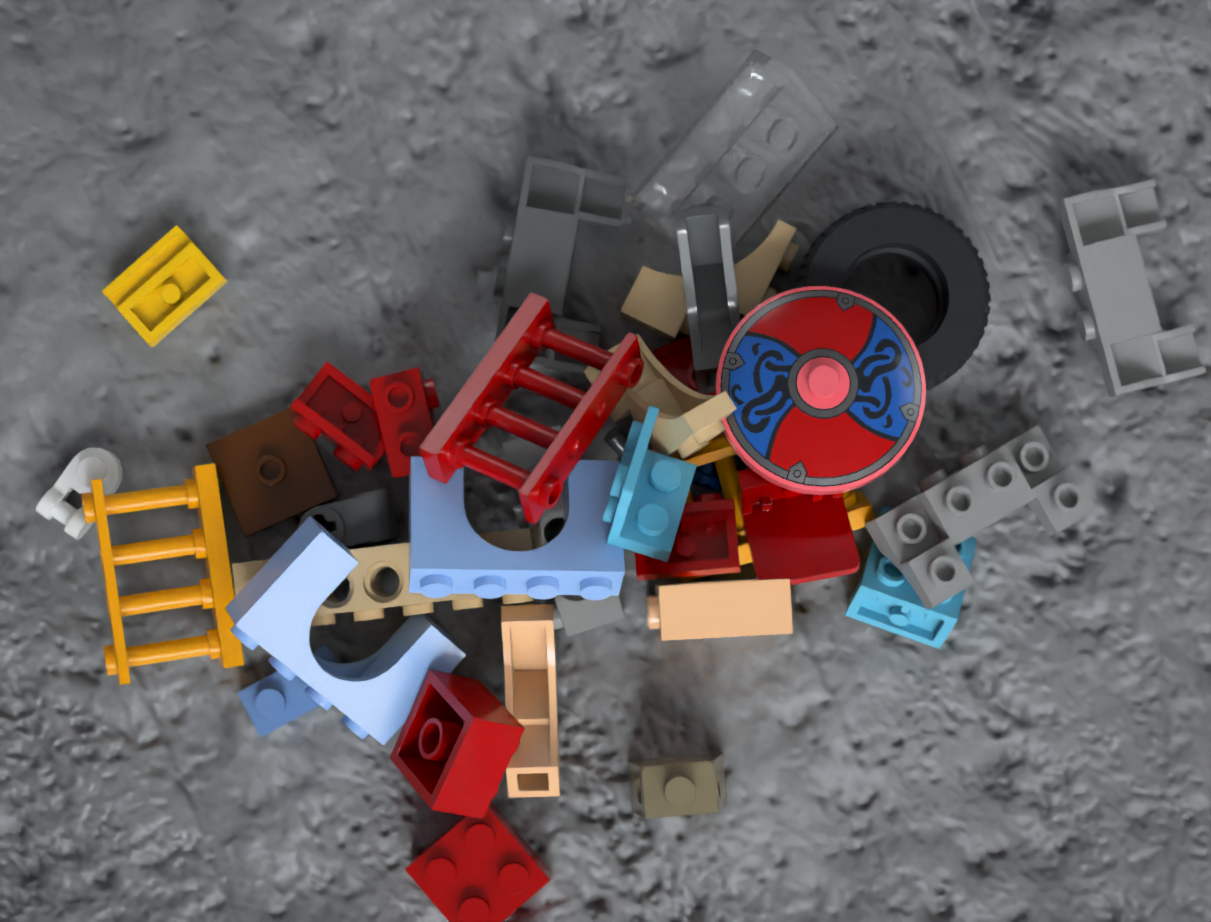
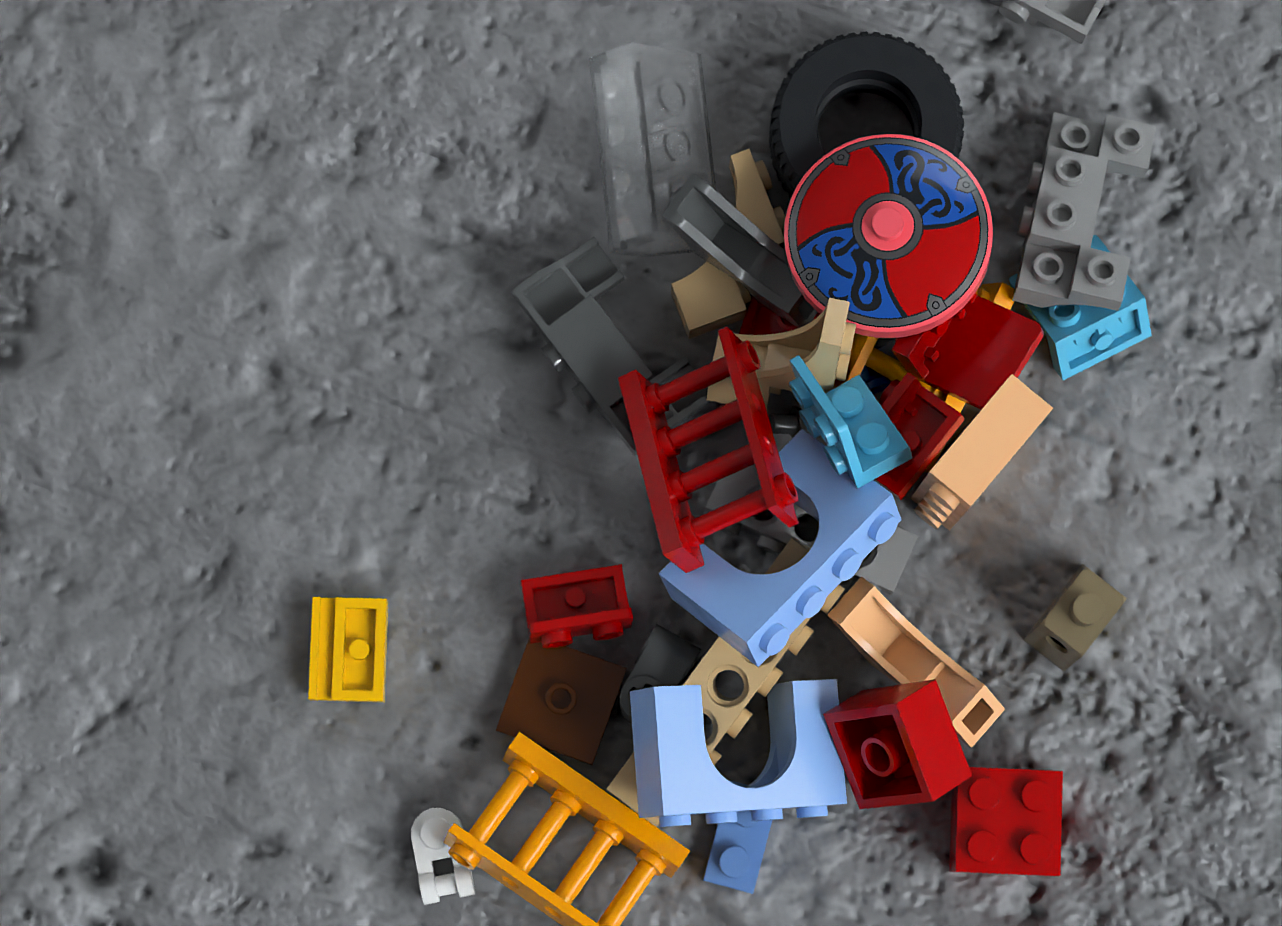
camera: 50 degrees left, 5 degrees down
(404, 415) = (621, 560): red bracket -> none

